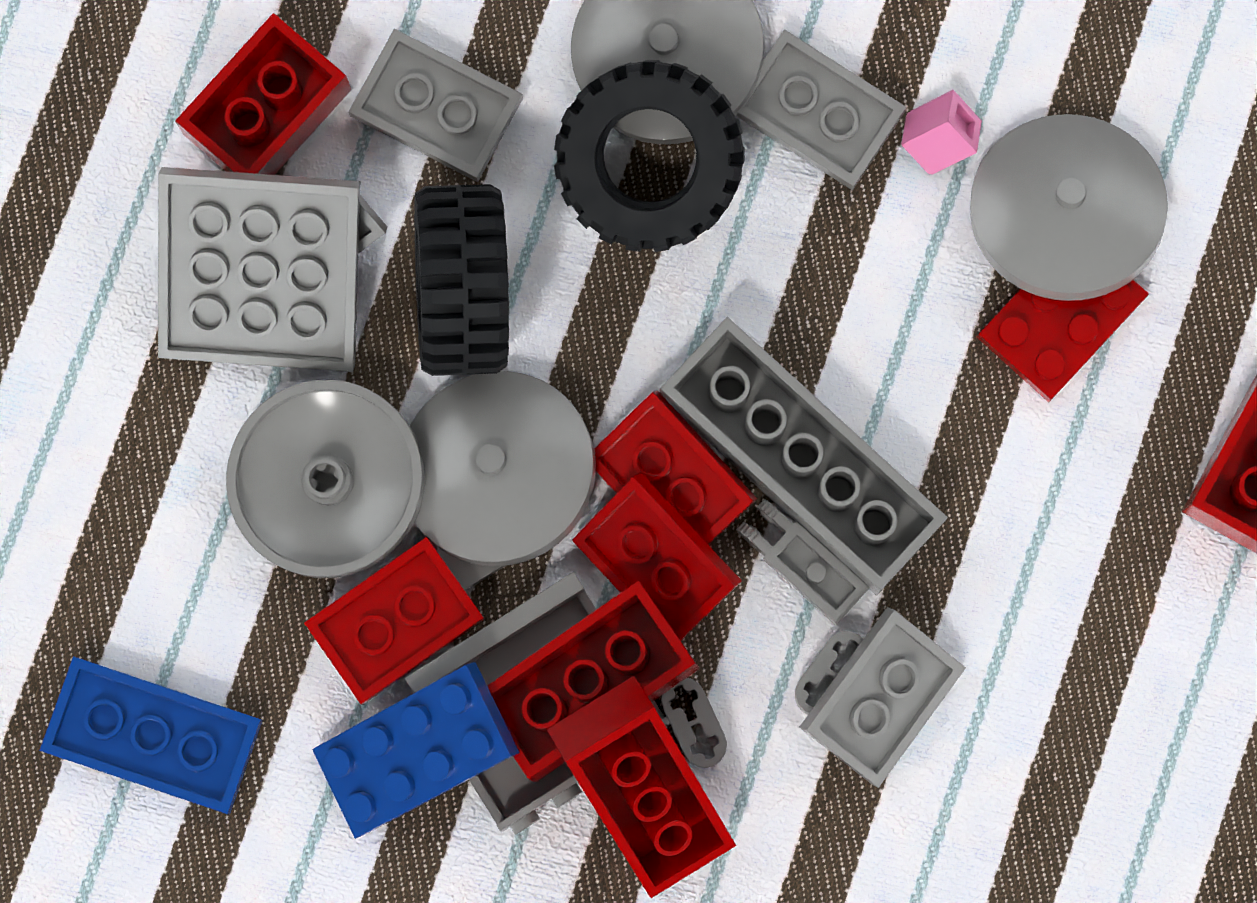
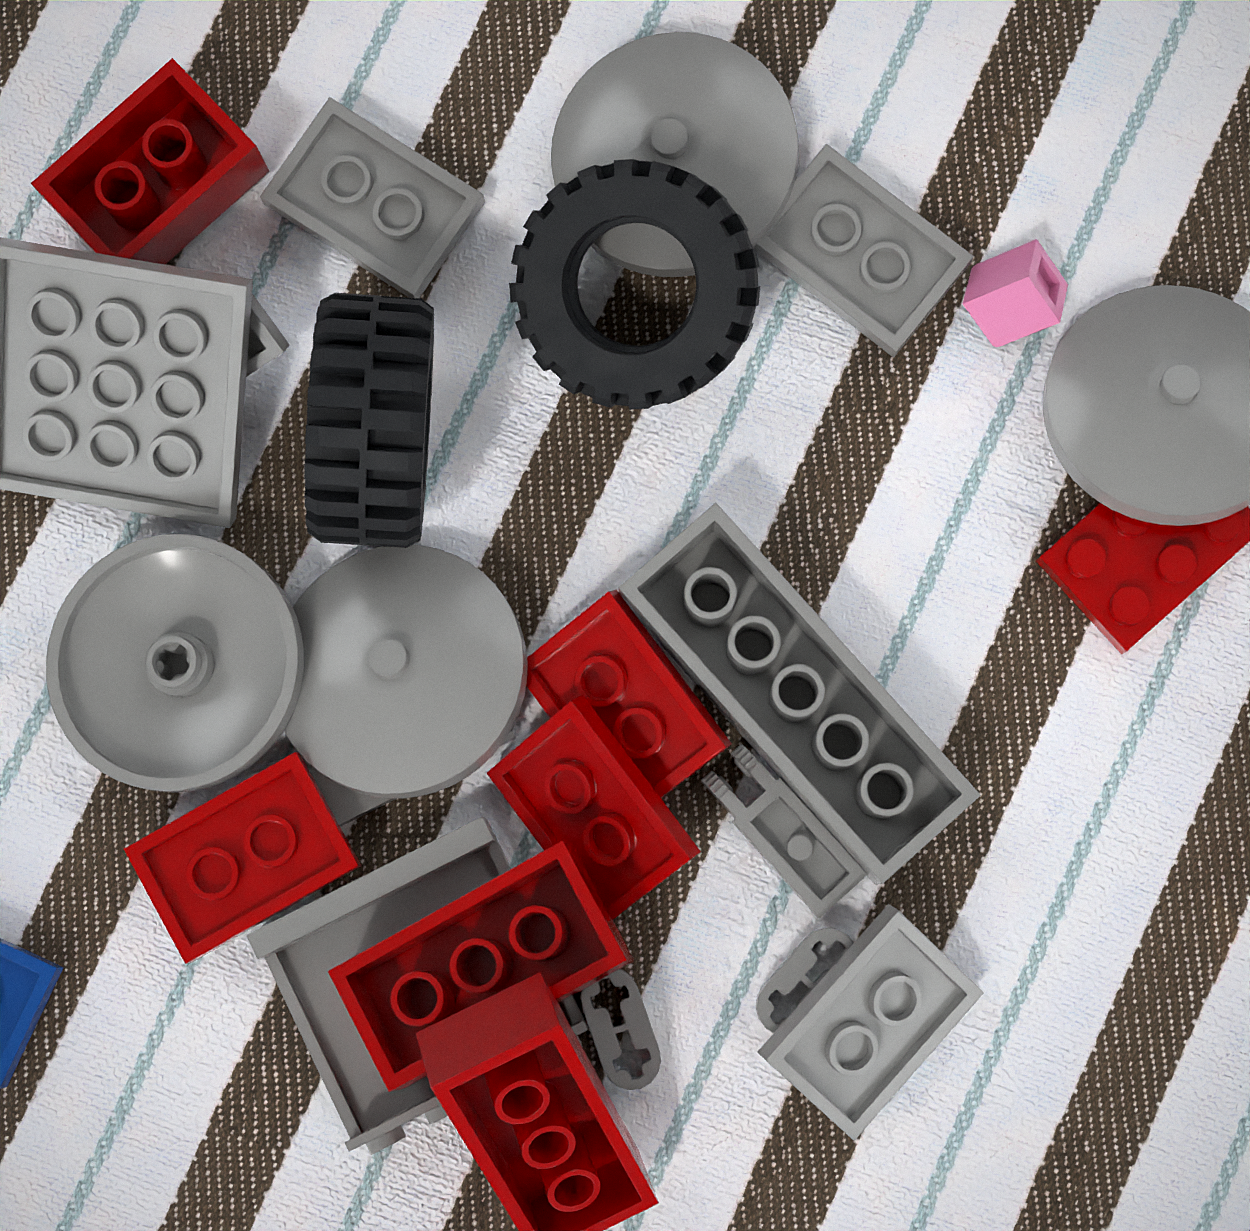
camera: 10 degrees right, 0 degrees up
(415, 750) = (251, 1032): blue plate -> none

